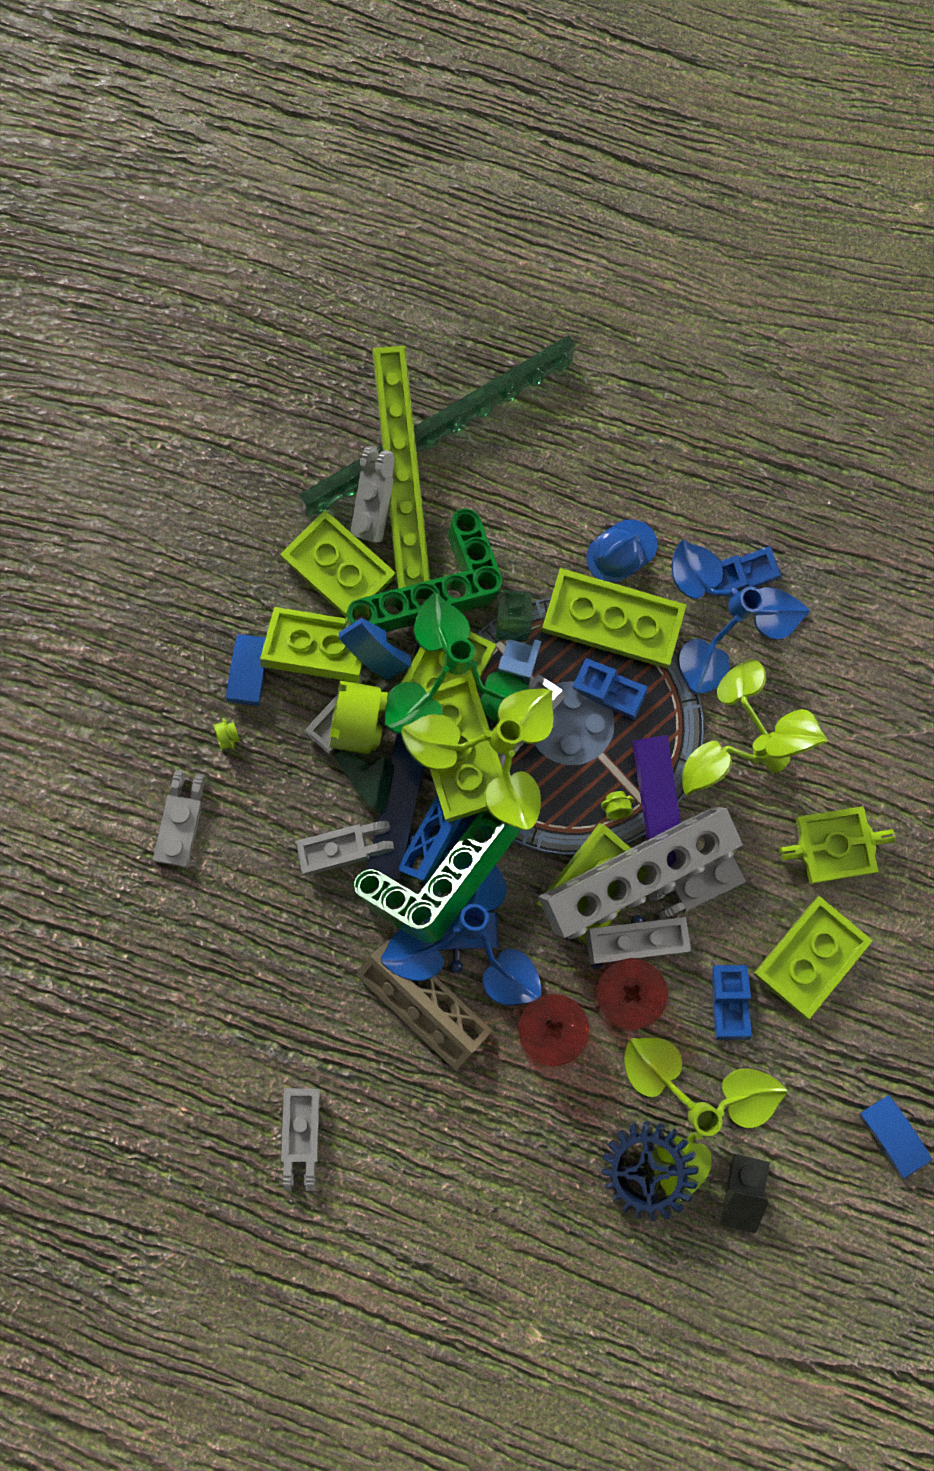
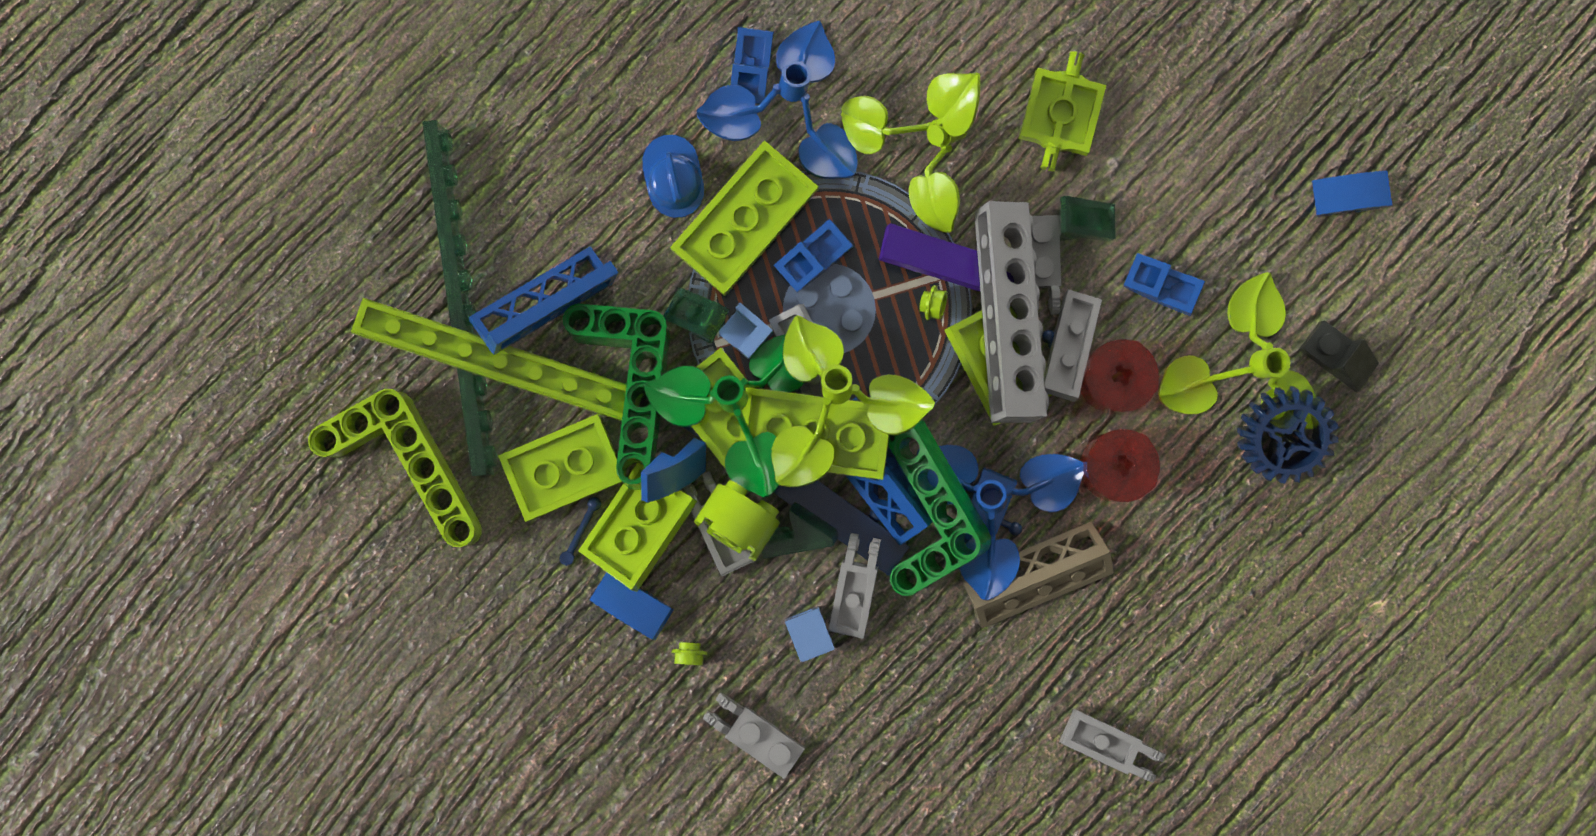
camera: 60 degrees left, 10 degrees up
(265, 603) = (568, 557): none -> dark blue hinge
(287, 826) = (809, 634): none -> medium blue panel
(293, 443) = (411, 457): none -> lime beam
(373, 494) = (507, 401): light grey hinge -> none
(464, 492) = (547, 307): none -> blue fence
(753, 904) = (1086, 219): none -> clear green slope
(812, 957) = (1157, 187): lime plate -> none

